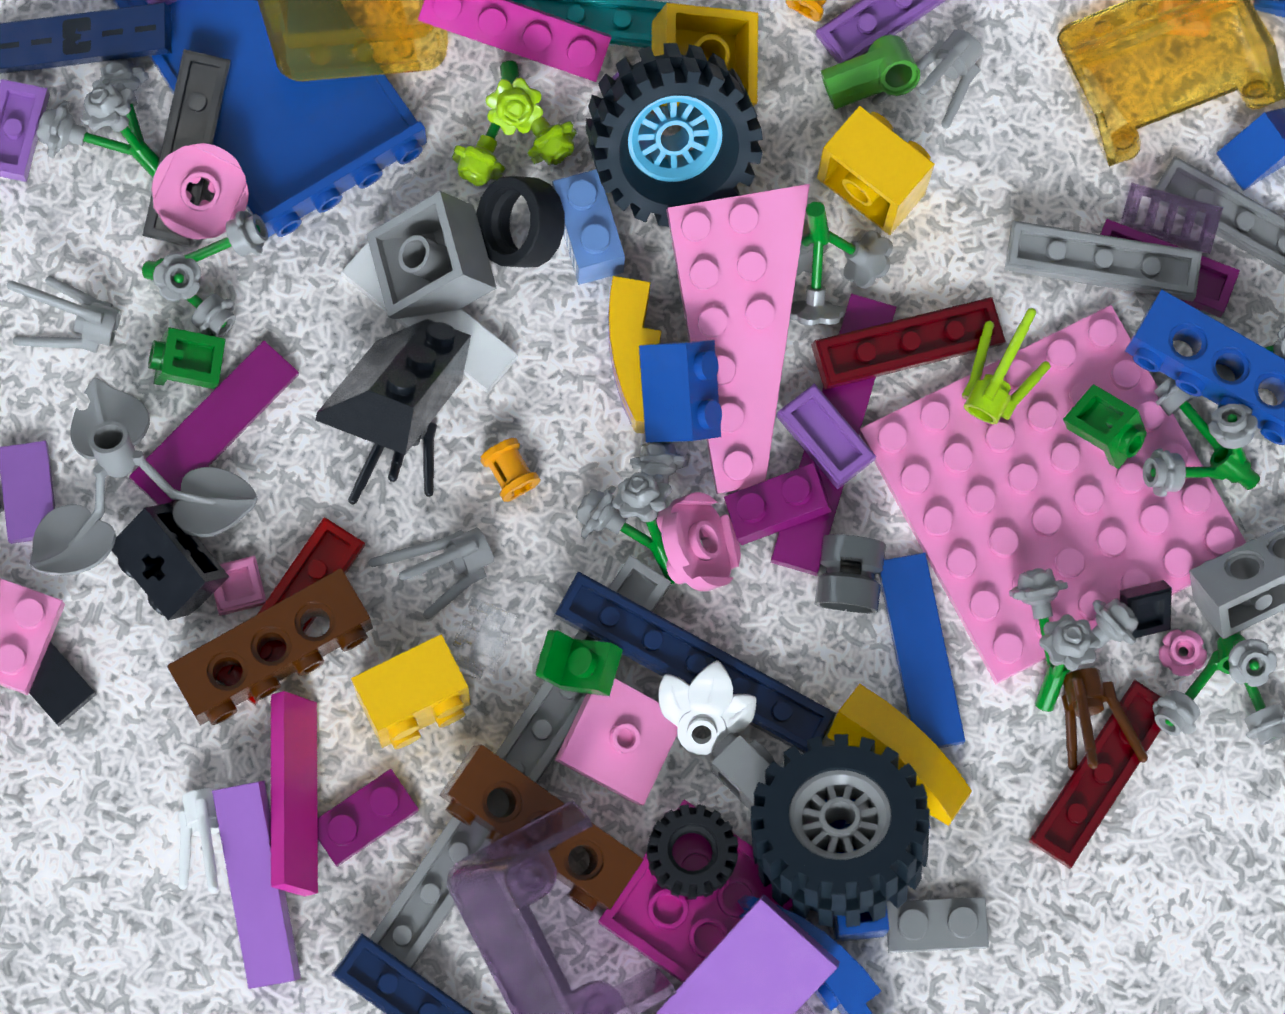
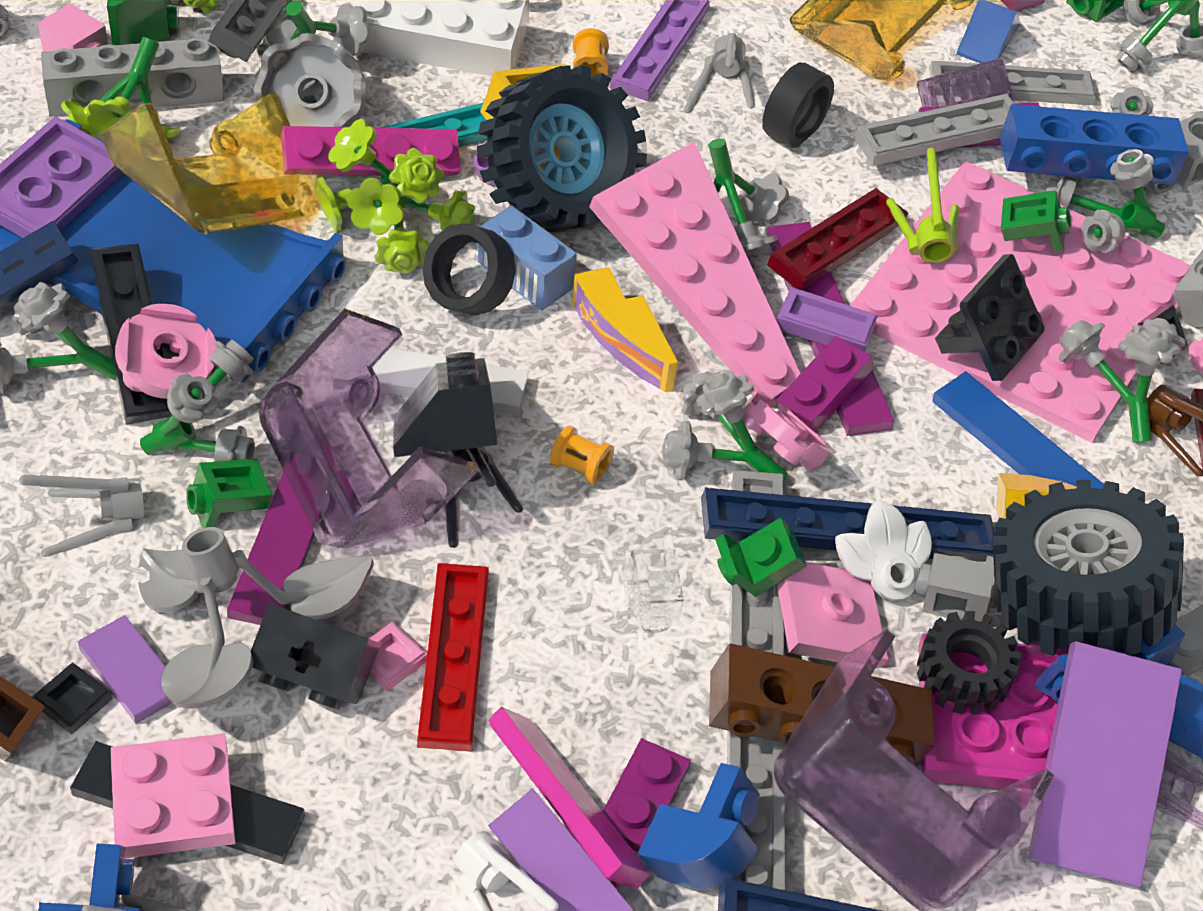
camera: 30 degrees left, 25 degrees down
(284, 622) = (427, 748): reddish brown brick -> none
(303, 321) = (327, 452): none -> clear purple windscreen
(375, 892) = (706, 845): none -> blue brick
(412, 693) = (624, 651): yellow brick -> none
(431, 258) = (427, 317): light grey slope -> none
(464, 553) = (585, 537): light grey plant -> none
(472, 46) = (376, 201): none -> lime plant
(680, 391) = (693, 323): blue brick -> none
(849, 590) = (924, 403): dark grey wheel -> none
(875, 169) = (741, 116): yellow brick -> none
(885, 68) = (674, 86): bright green piece -> none
(970, 528) = (995, 320): none -> black bracket
(973, 164) = (798, 104): none -> black tyre

